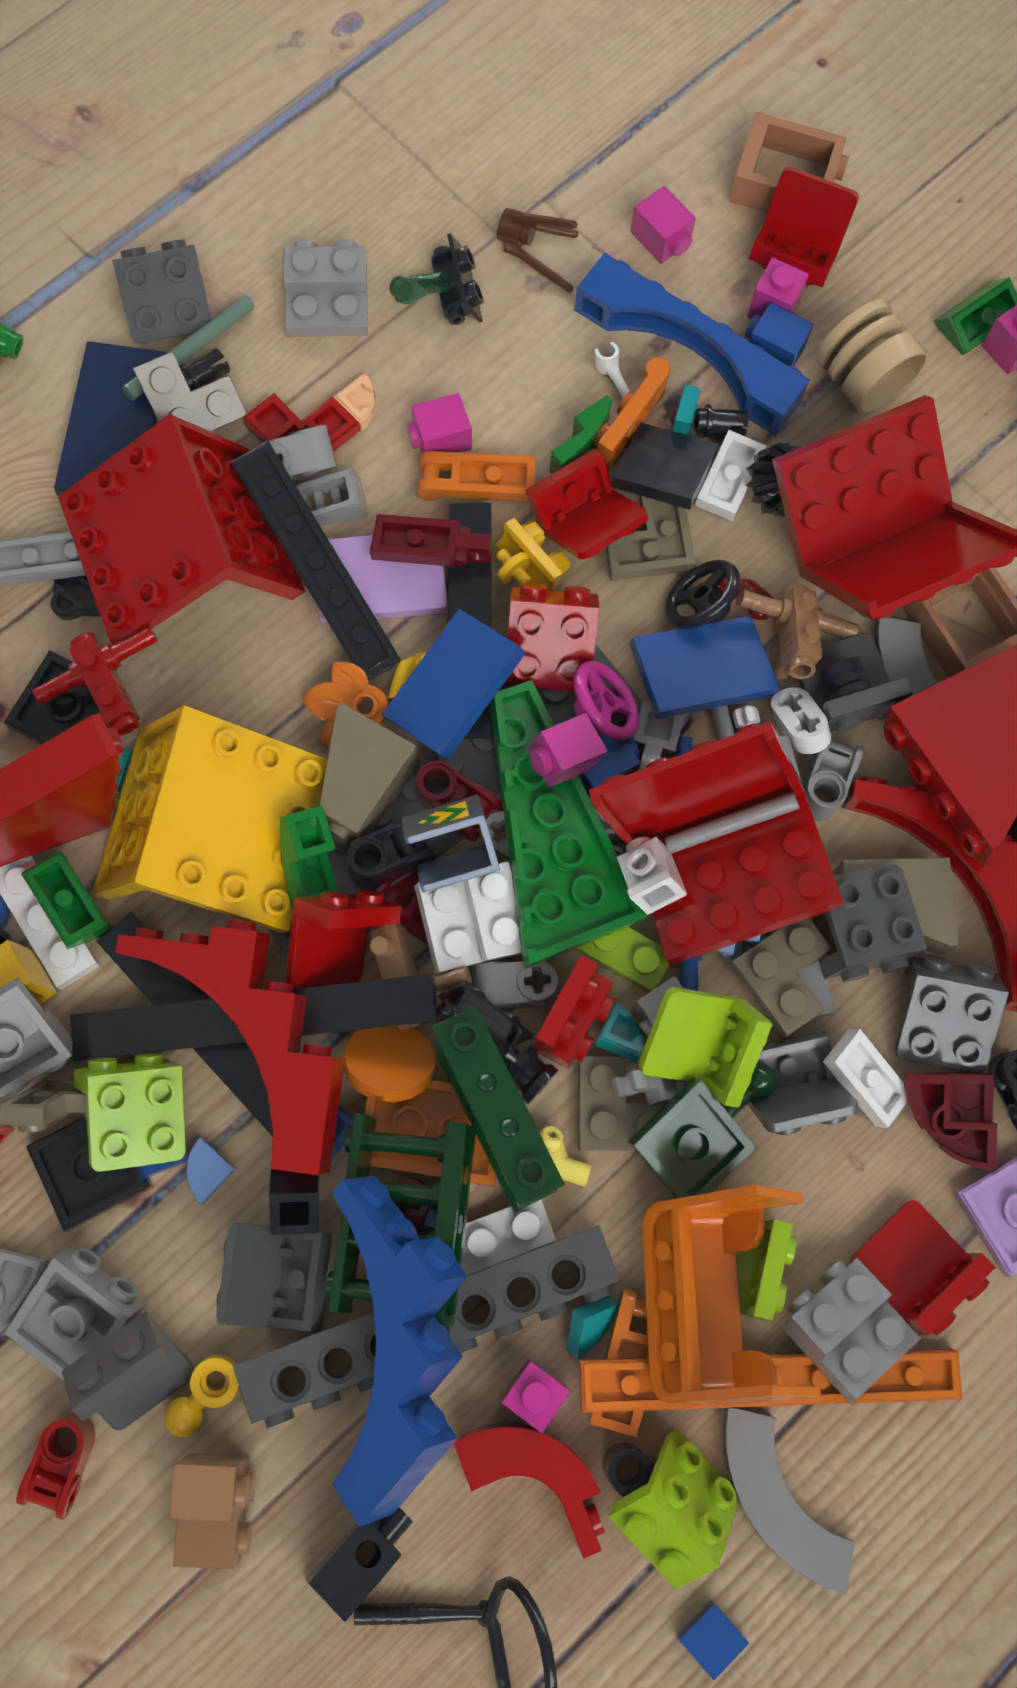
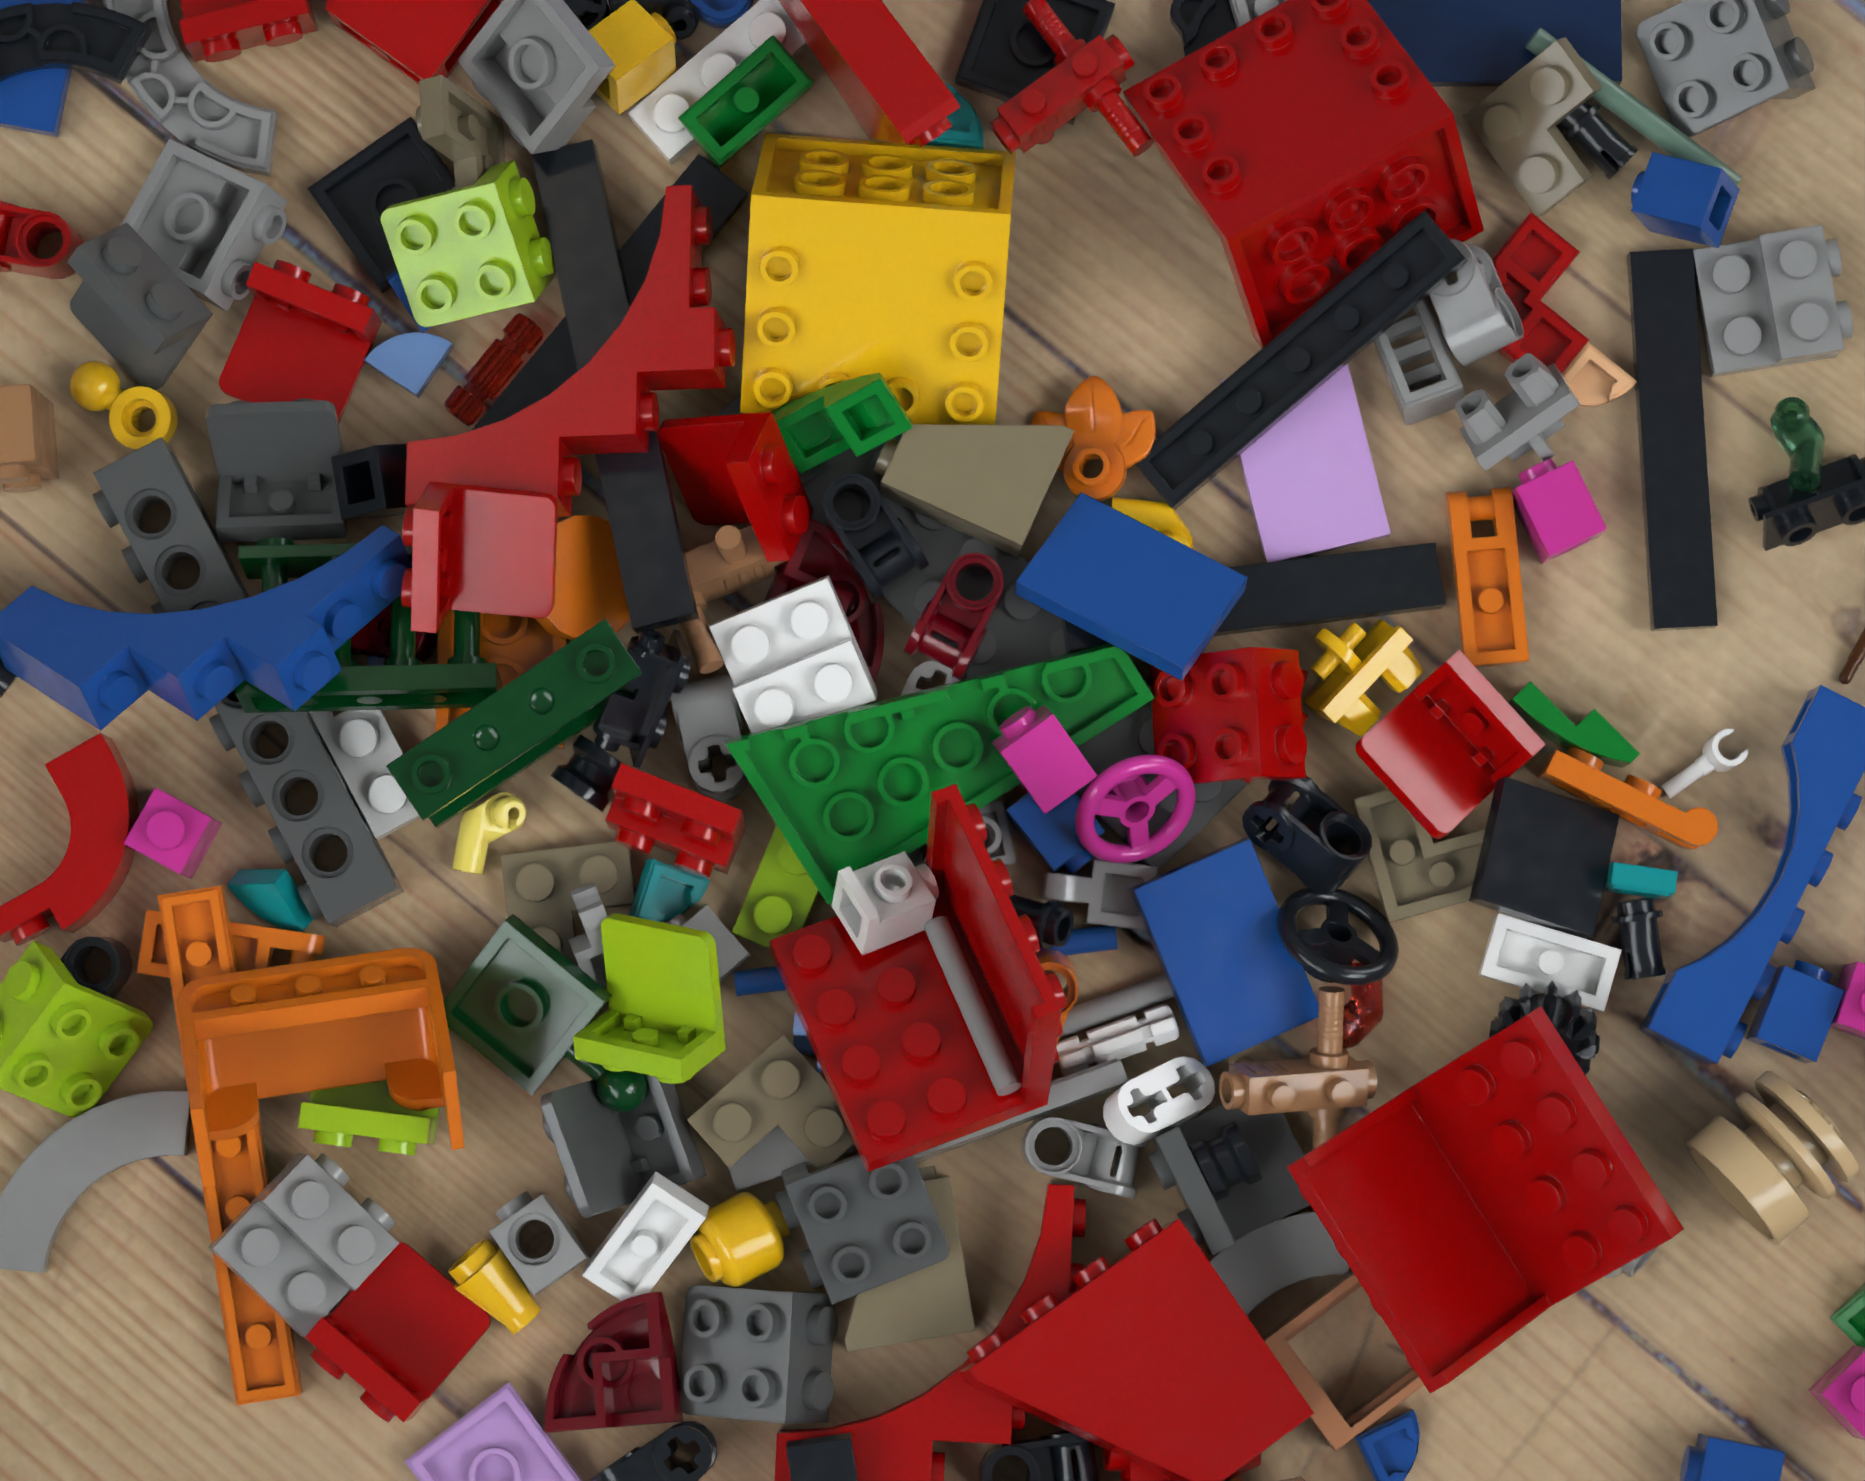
camera: 90 degrees right, 10 degrees up
(176, 1251) = (299, 340): none -> red bracket
(225, 1109) = (494, 369): none -> clear red axle
(252, 323) = (1684, 199): none -> blue brick
(365, 1120) = (479, 553): none -> bracket
(376, 436) = (1521, 418): none -> light grey hips
(404, 359) = (1672, 440): none -> black tile
(428, 541) = (1355, 516): dark red hinge -> none
(460, 865) = (908, 602): sand blue piece -> none
(634, 601) = (1311, 835): none -> black piece
(871, 1009) = (740, 1239): none -> yellow head
(880, 1150) = (566, 1250): none -> light grey brick
(887, 1194) = (494, 1285): none -> yellow cone

